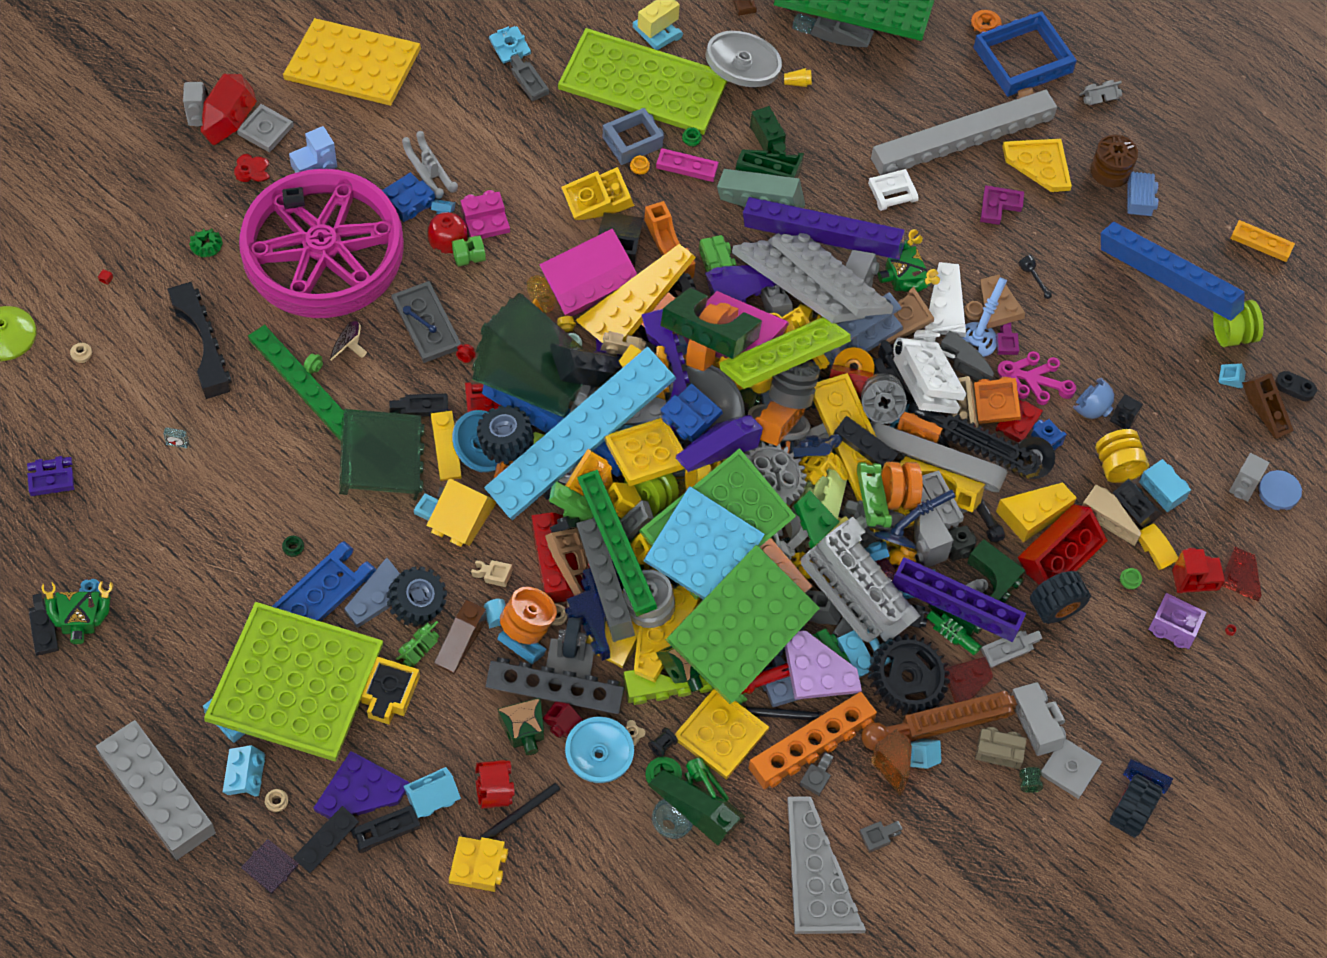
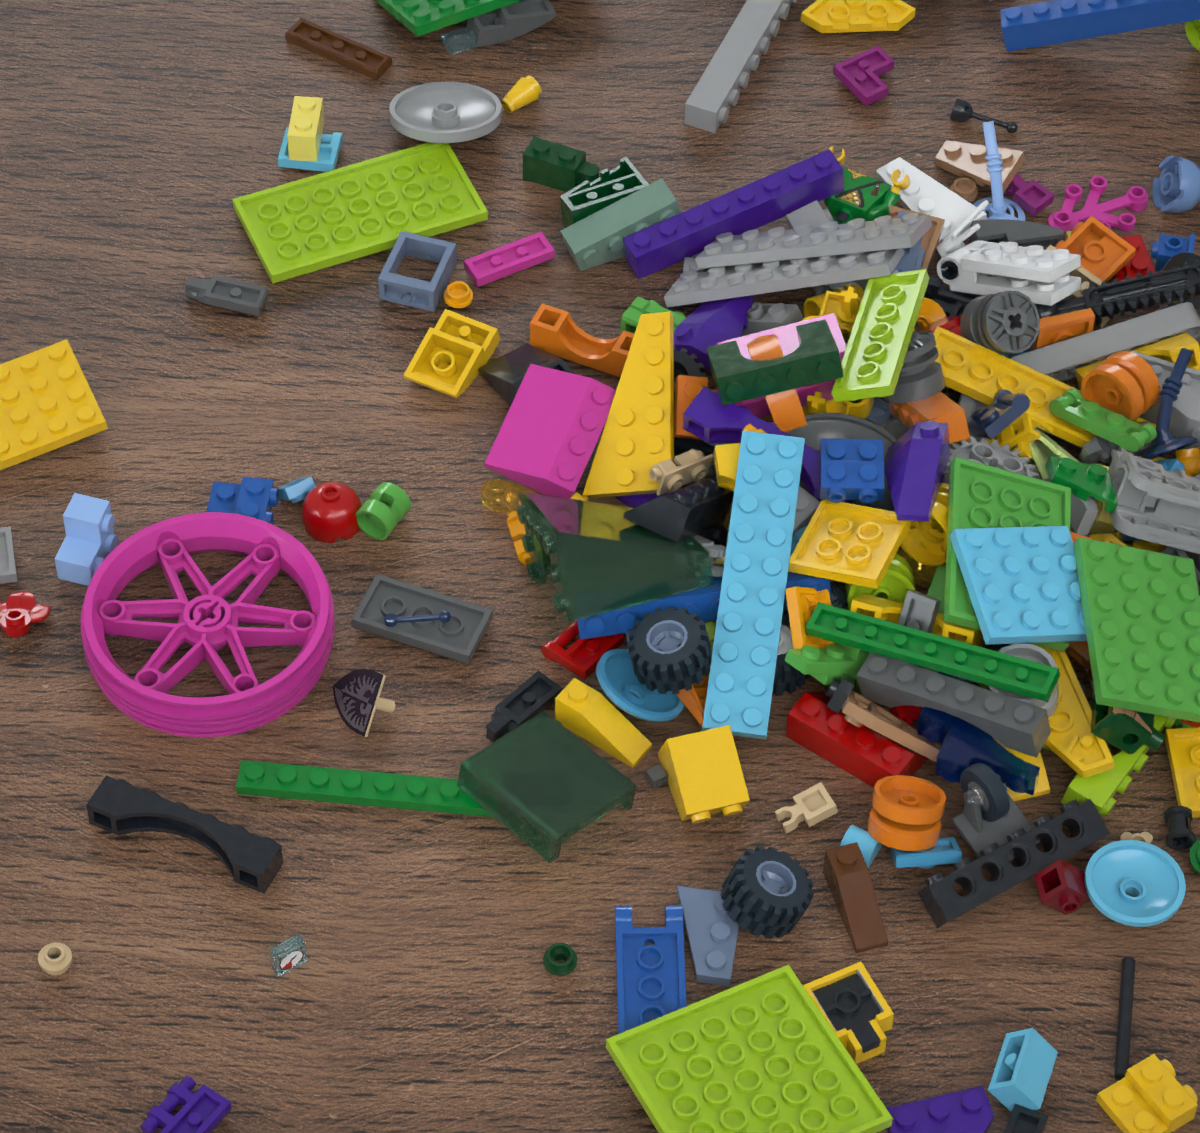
camera: 40 degrees left, 10 degrees down
(208, 249) = (52, 739): green gear -> none
(293, 198) = (129, 594): black brick -> none
(313, 363) = (350, 755): bright green plate -> none
(423, 641) = (822, 938): bright green hinge -> none
(425, 506) = (660, 800): medium azure plate -> none
(429, 167) = (228, 462): light grey piece -> none
(465, 353) = (504, 617): red plate -> none
(485, 214) = (352, 462): dark pink plate -> none
(493, 784) = (1075, 1006): red brick -> none
(513, 36) = (163, 275): medium azure piece -> none
(523, 724) = (1026, 928): torso -> none
(691, 136) = (479, 228): green plate -> none
(865, 442) = (1032, 380): black plate -> none
(891, 184) = (740, 129): white plate -> none

